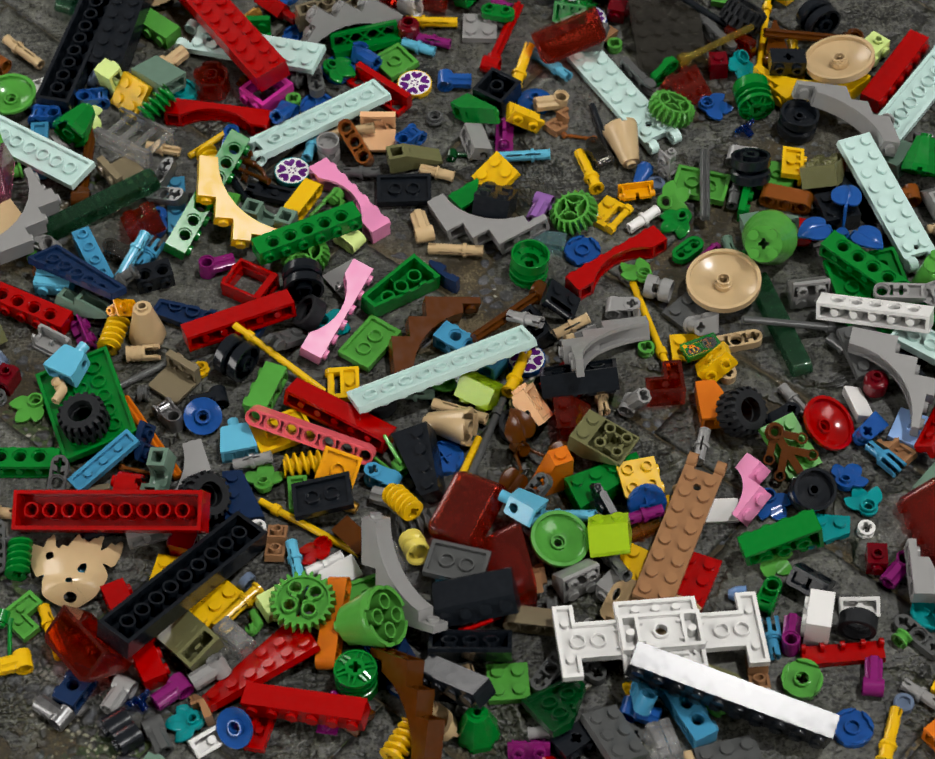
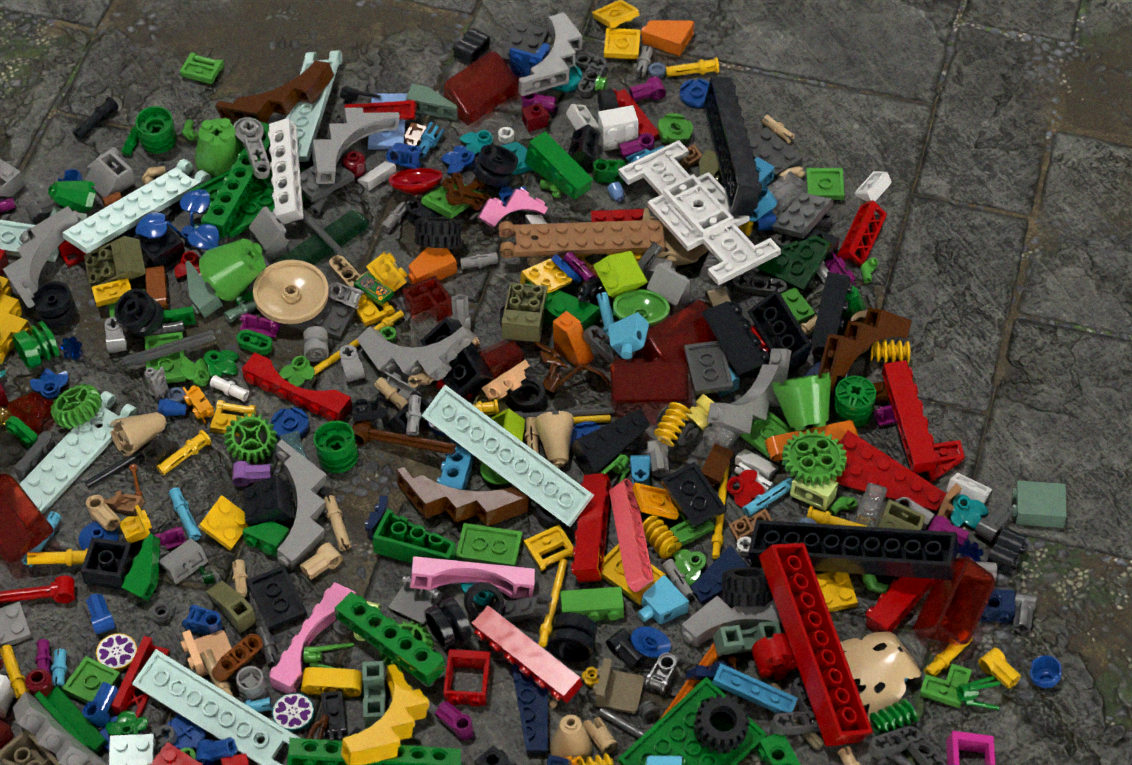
camera: 115 degrees left, 0 degrees up
(228, 729) = (957, 461): blue dish -> none

